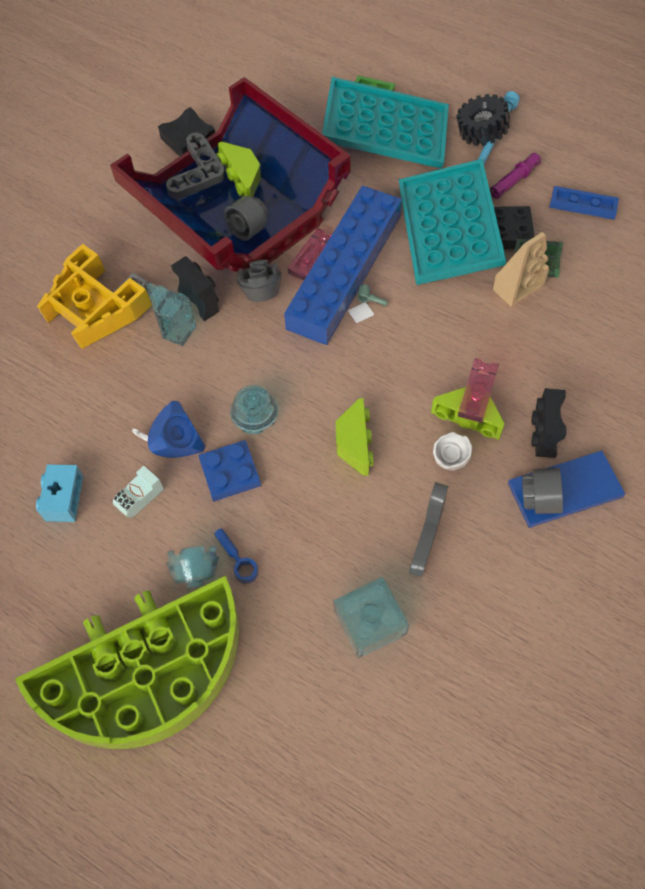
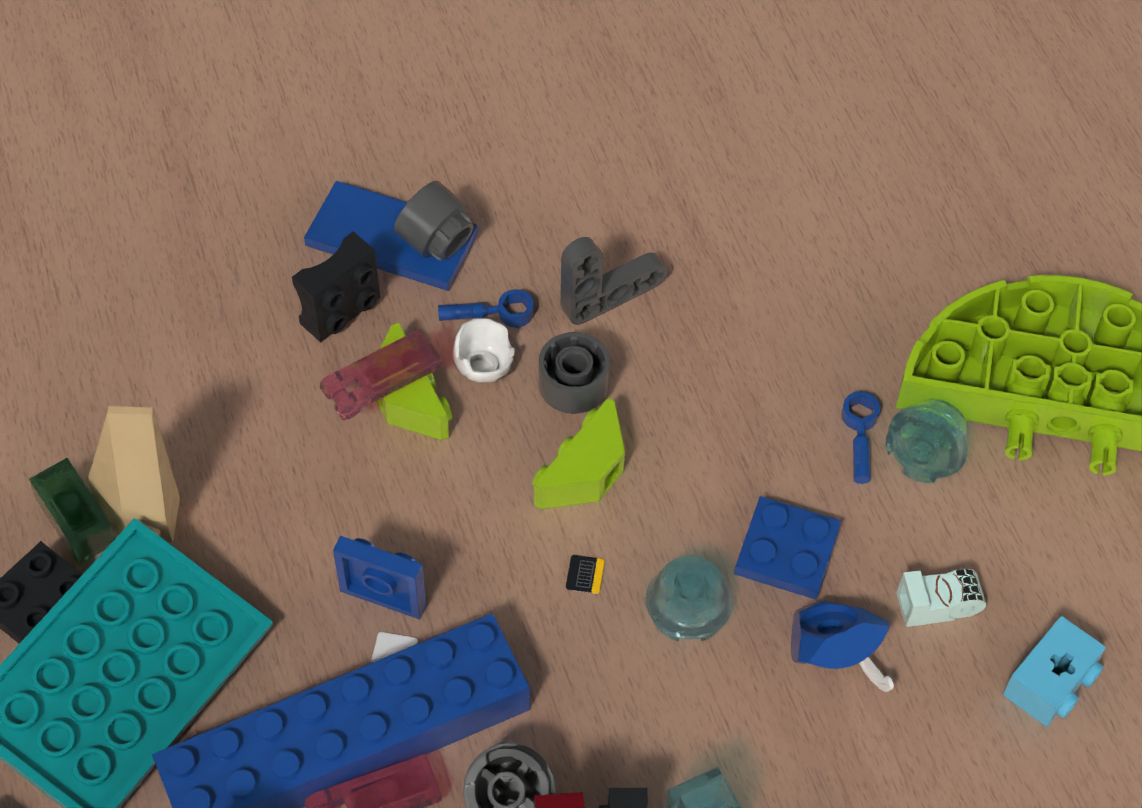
camera: 145 degrees left, 5 degrees down
(312, 396) = (585, 574): none -> black sticker
(364, 295) = (361, 658): sand green hand -> none
(370, 617) = (755, 254): clear light blue brick -> none
(387, 314) = (380, 576): none -> blue plate
(399, 455) = (573, 372): none -> dark grey piece
(480, 482) = (480, 310): none -> blue piece

